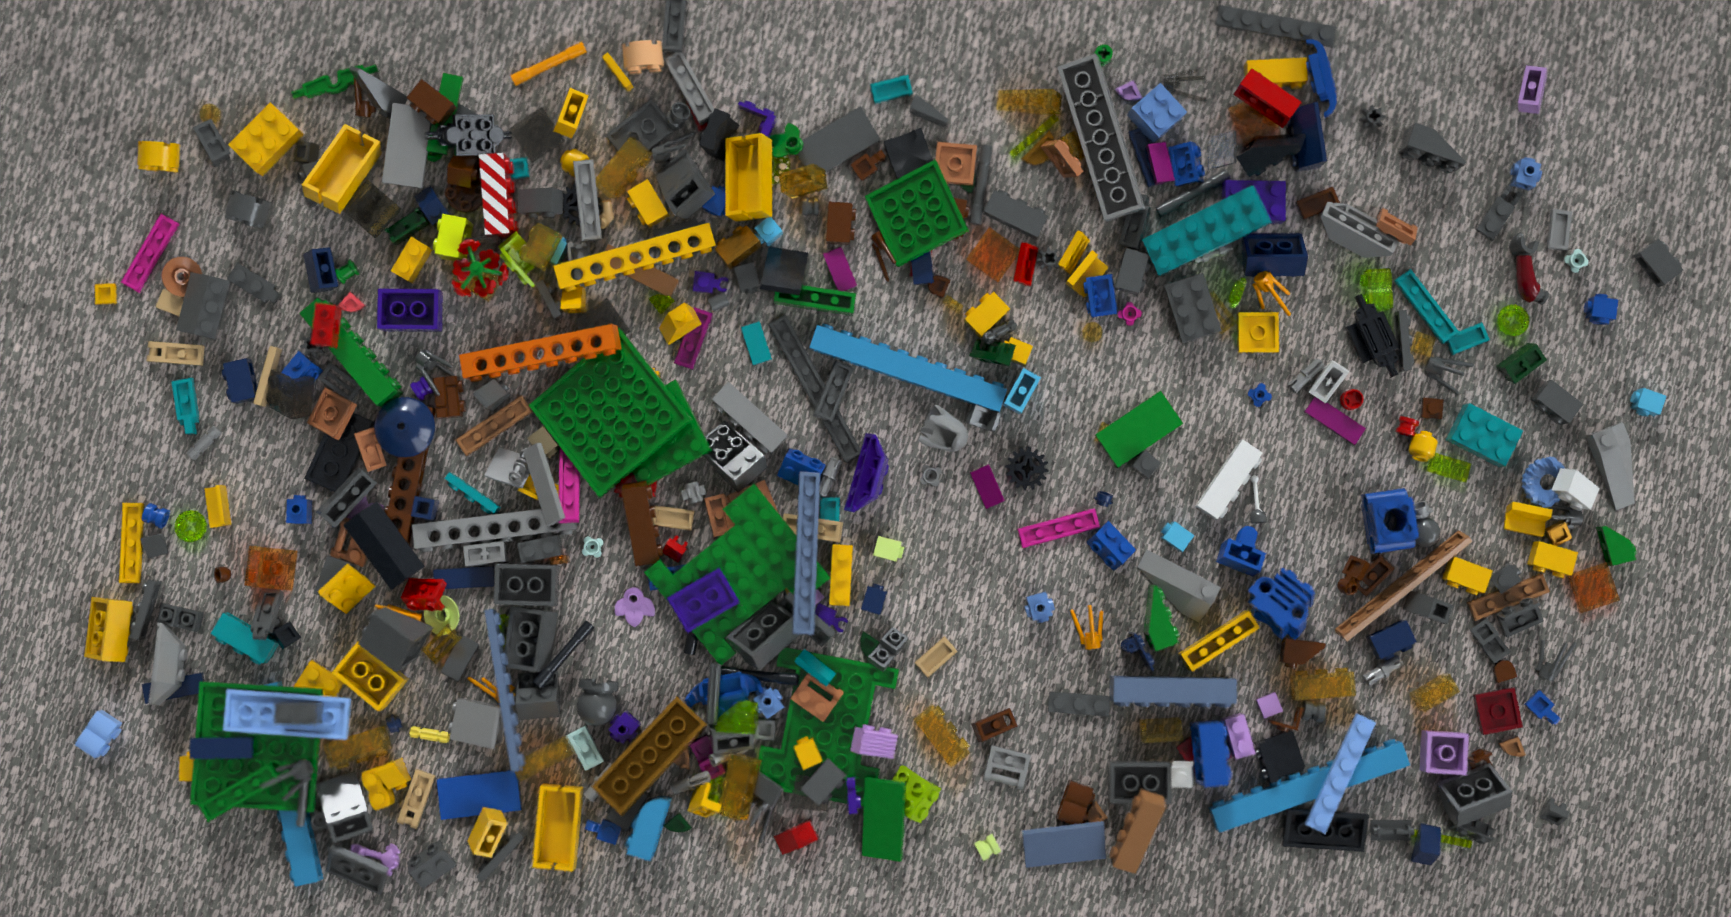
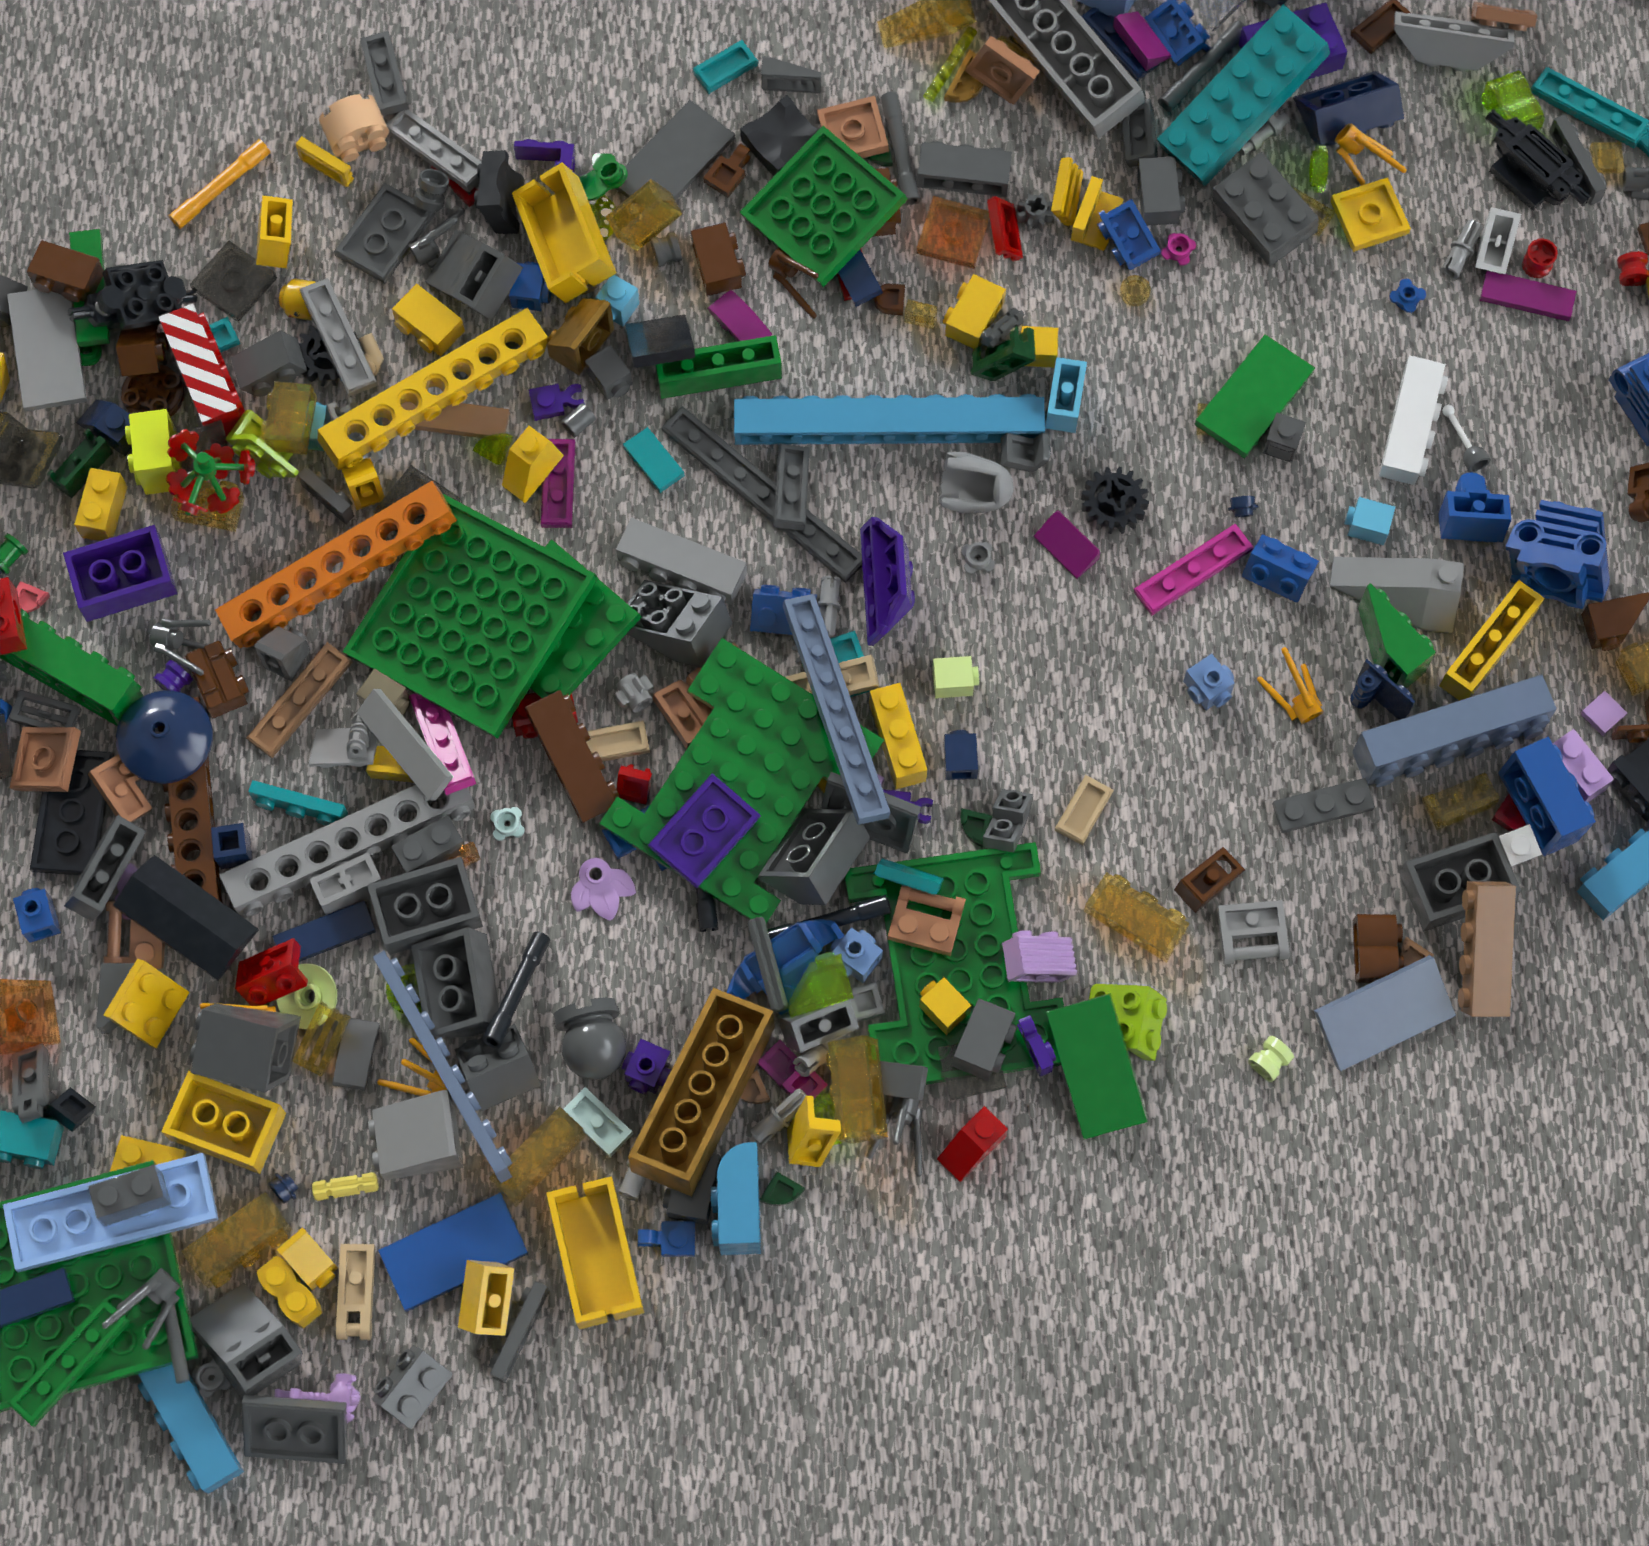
camera: 20 degrees left, 15 degrees down
(623, 168) = (375, 281): clear yellow brick -> none

